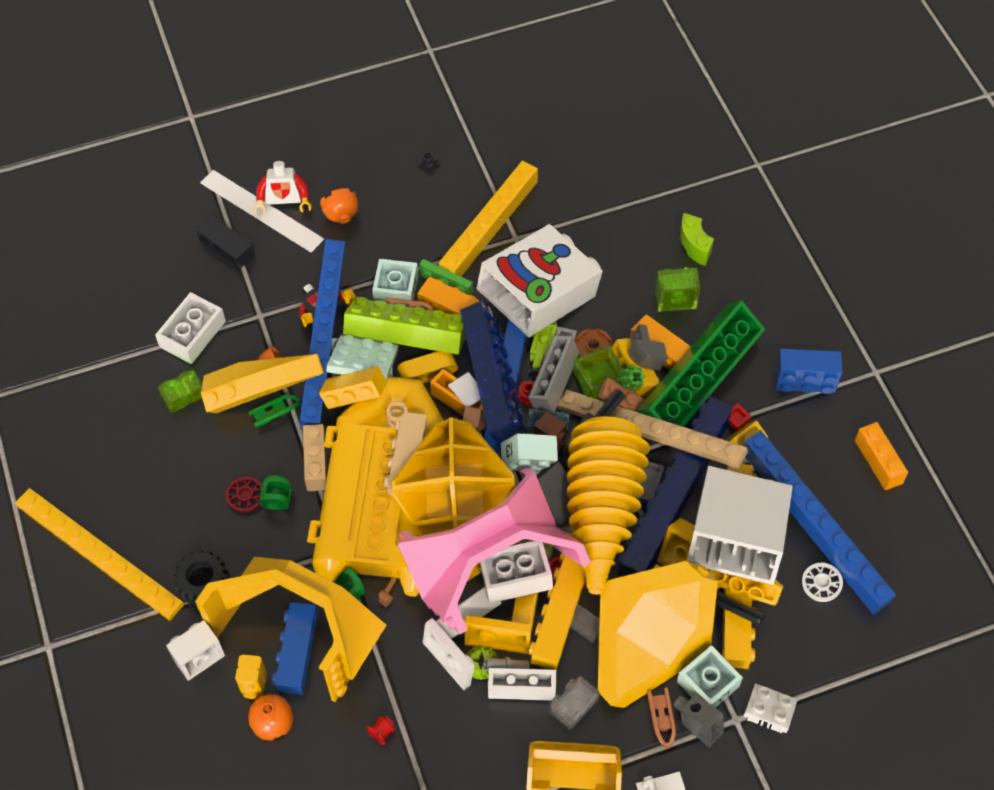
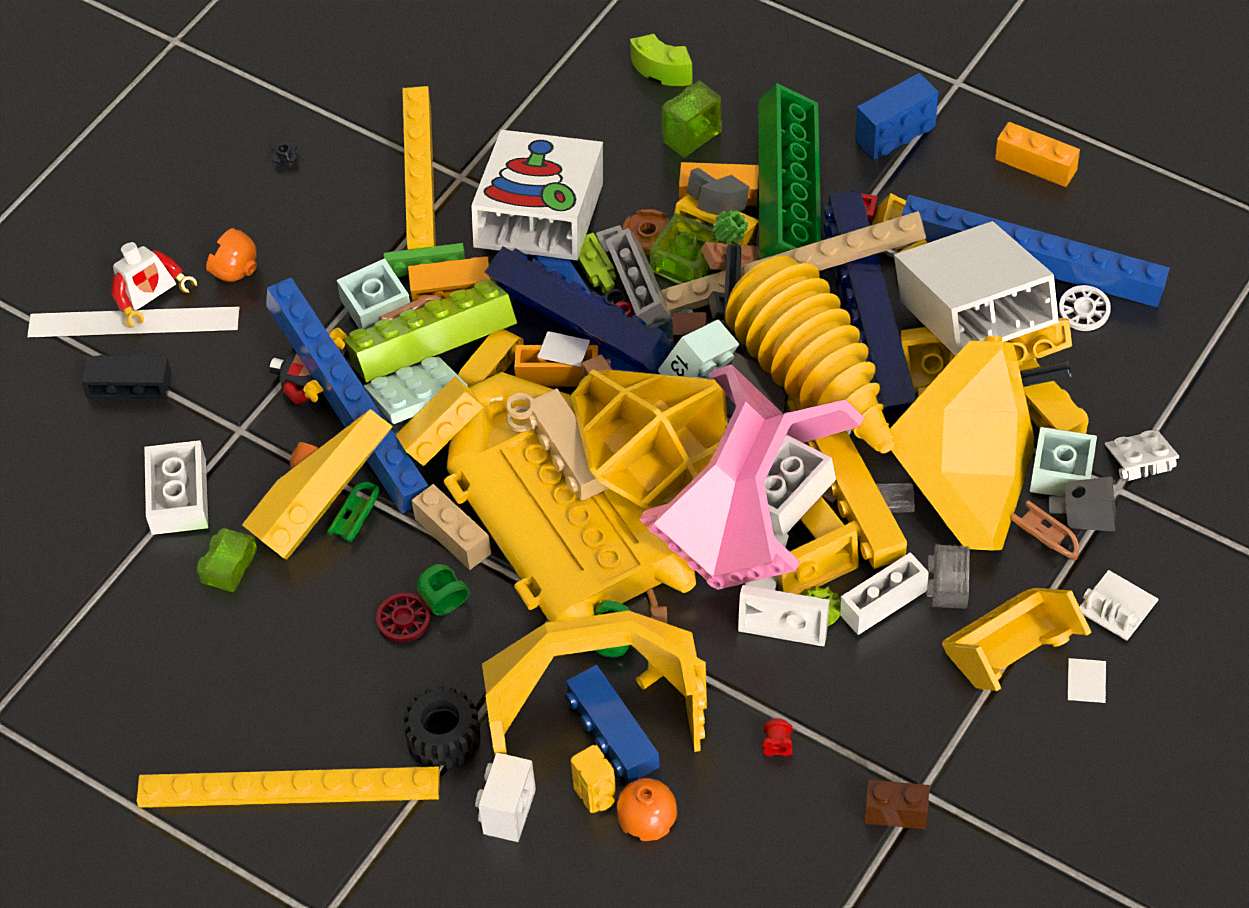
camera: 35 degrees left, 5 degrees down
(506, 662) = (845, 586): light grey pin -> none

